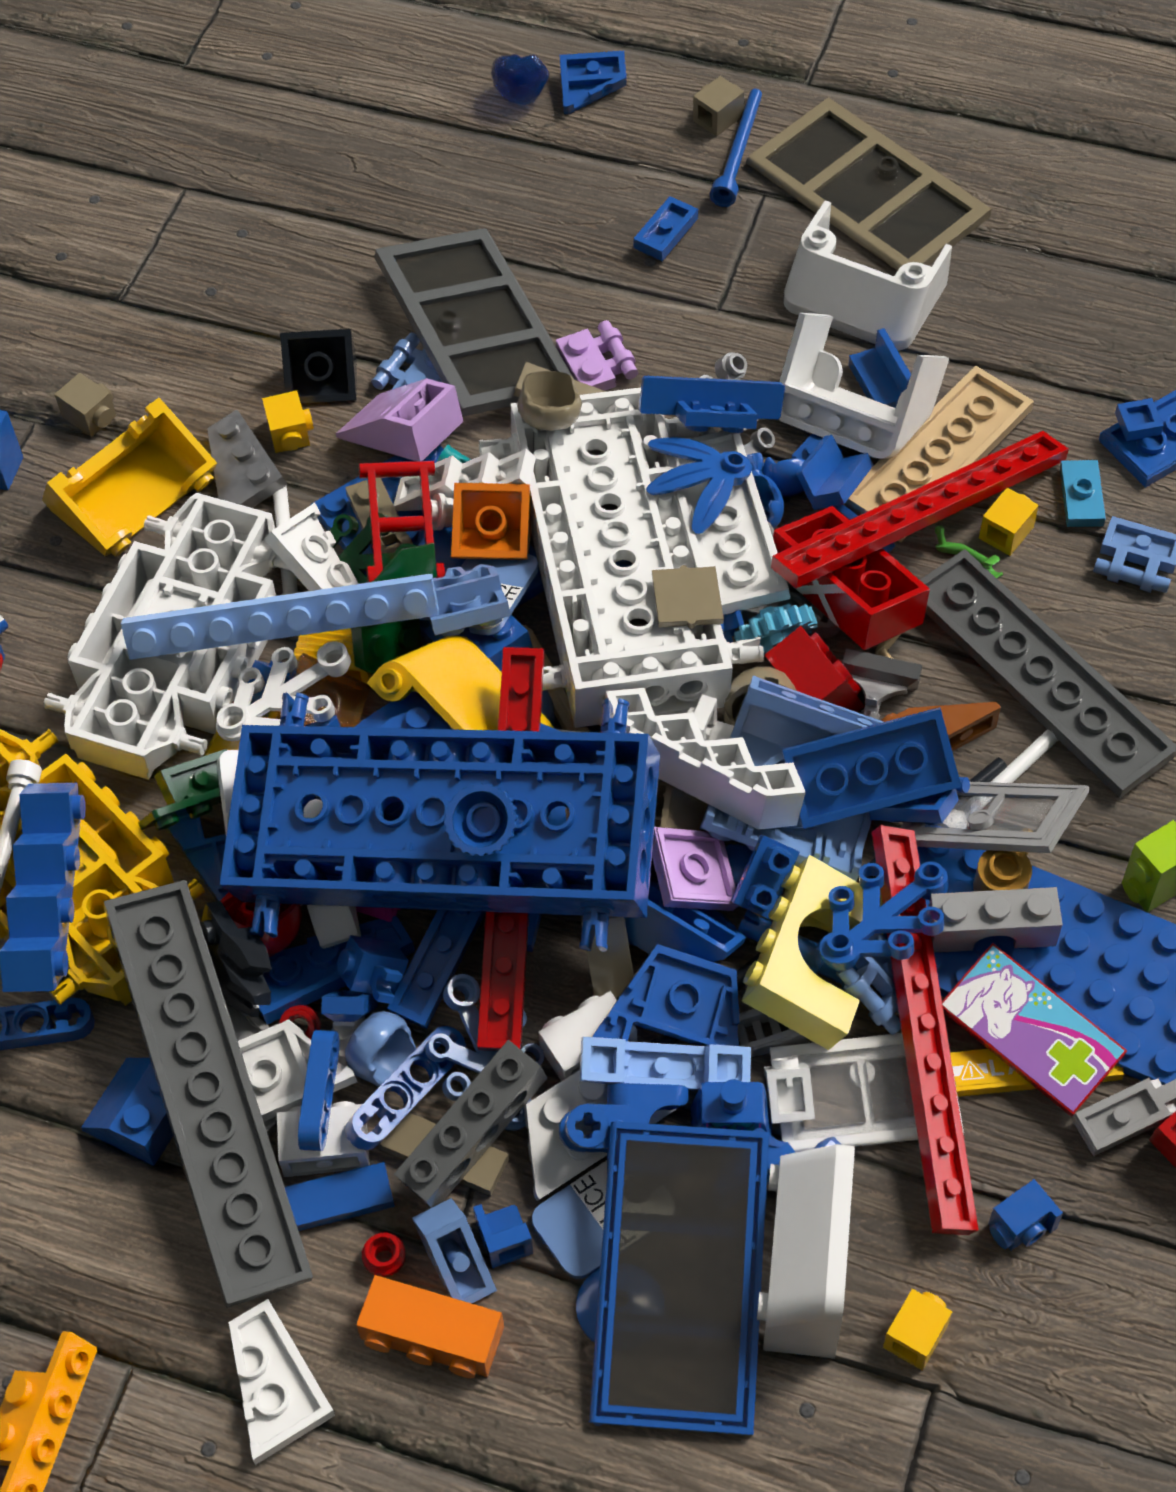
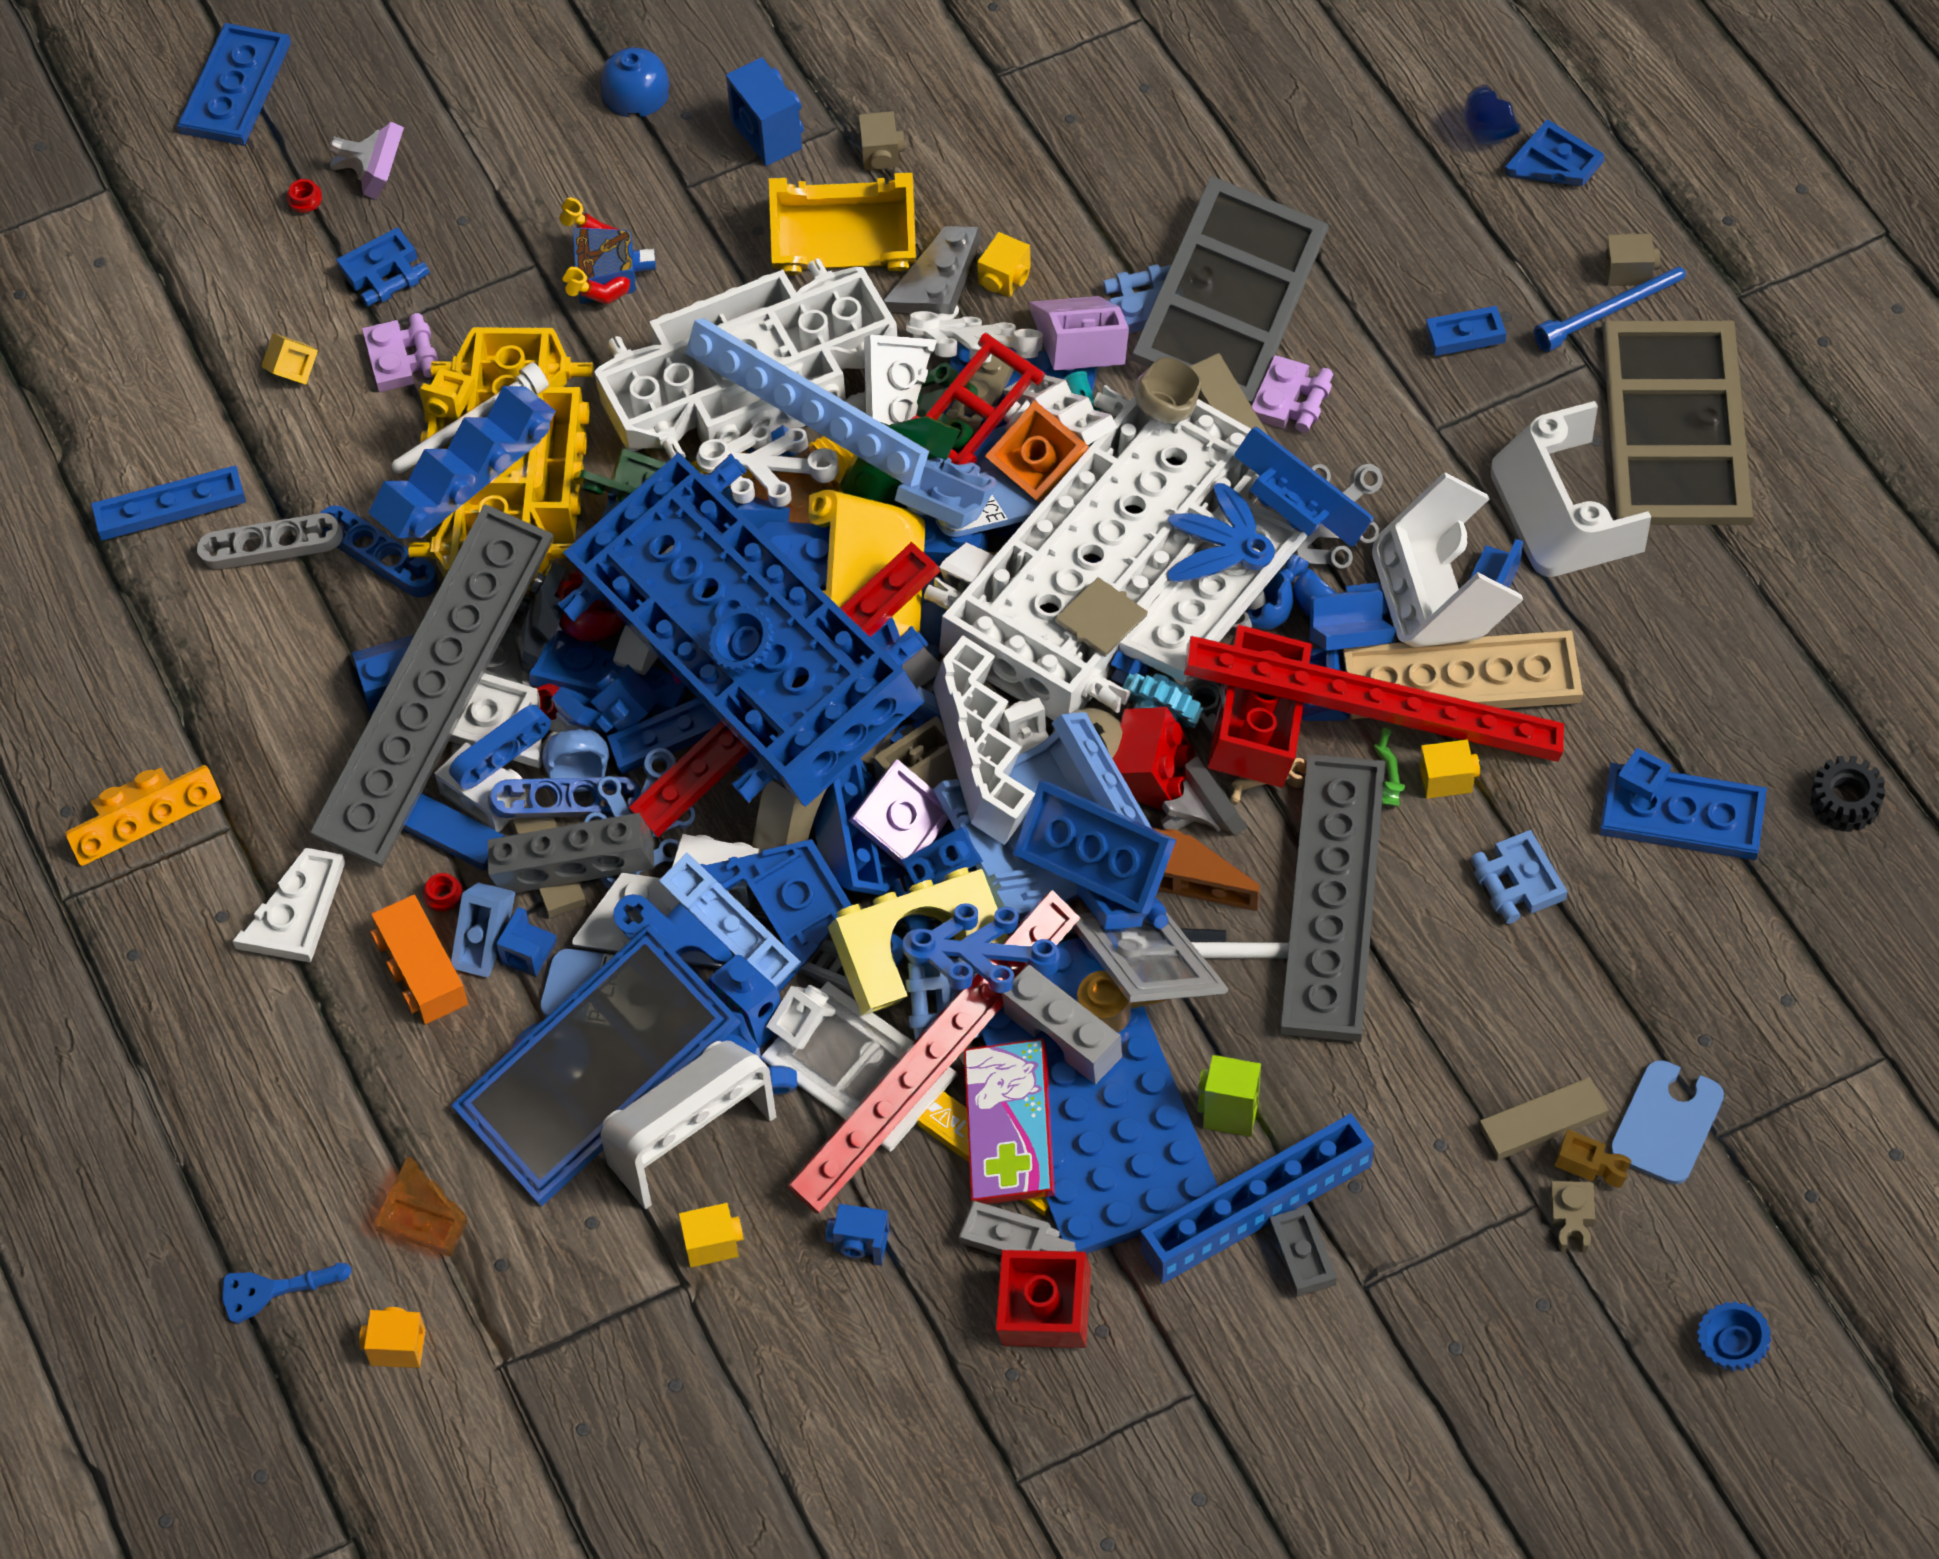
camera: 45 degrees right, 0 degrees up
(320, 365) = (1073, 240): black slope -> none
(335, 480) = (968, 332): none -> white plant
(545, 636) = (964, 566): none -> white slope
(1082, 493) = (1538, 796): dark azure plate -> none

